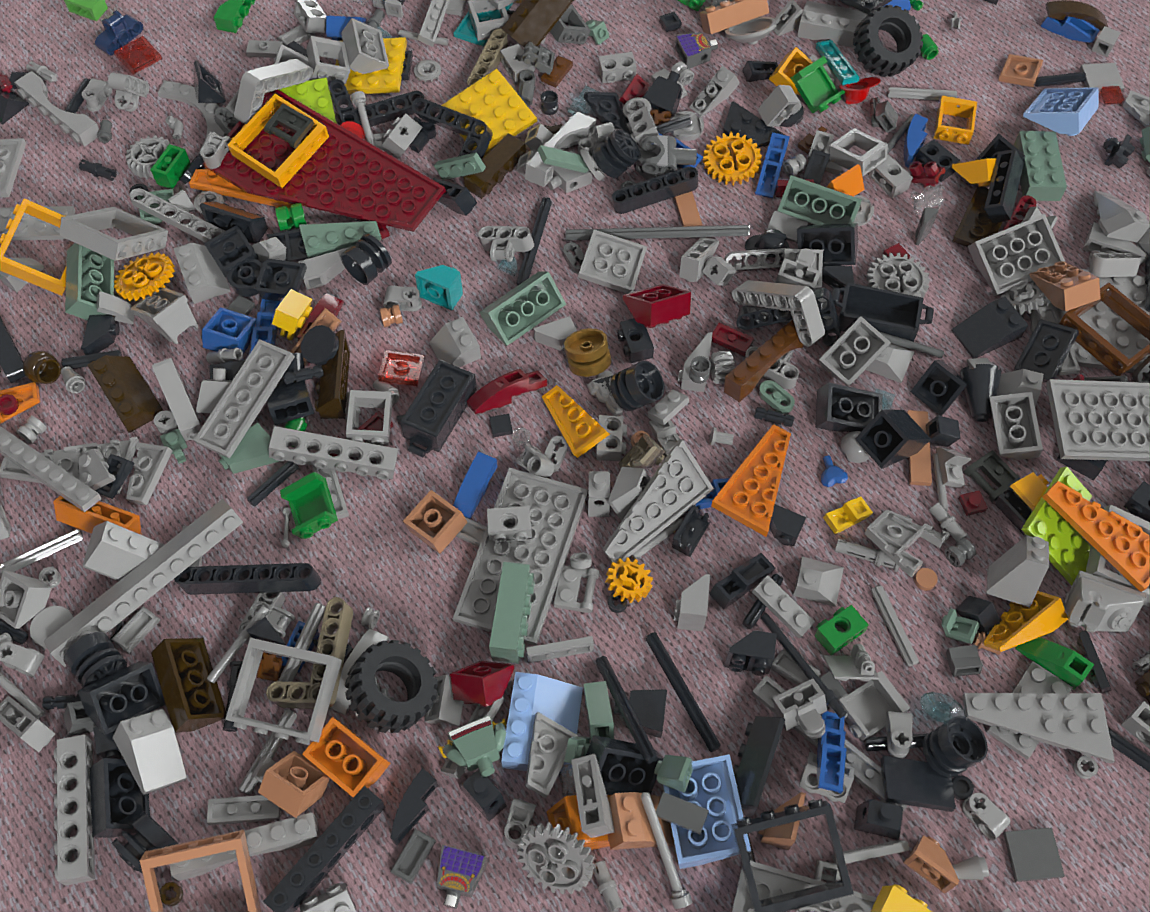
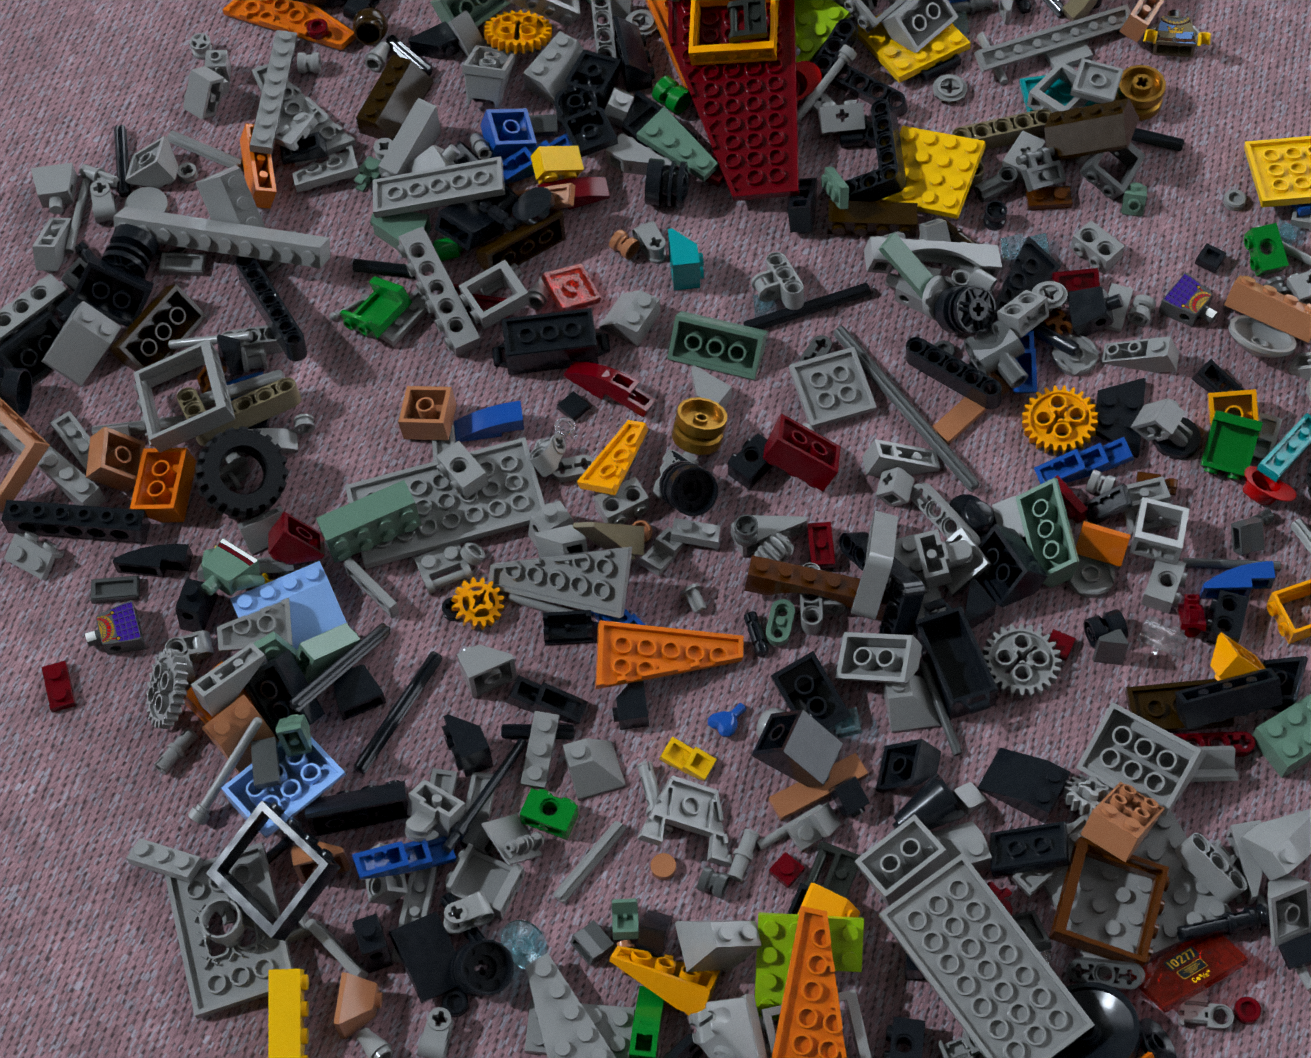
camera: 60 degrees right, 0 degrees up
(905, 222) = (1097, 626): none -> black wheel

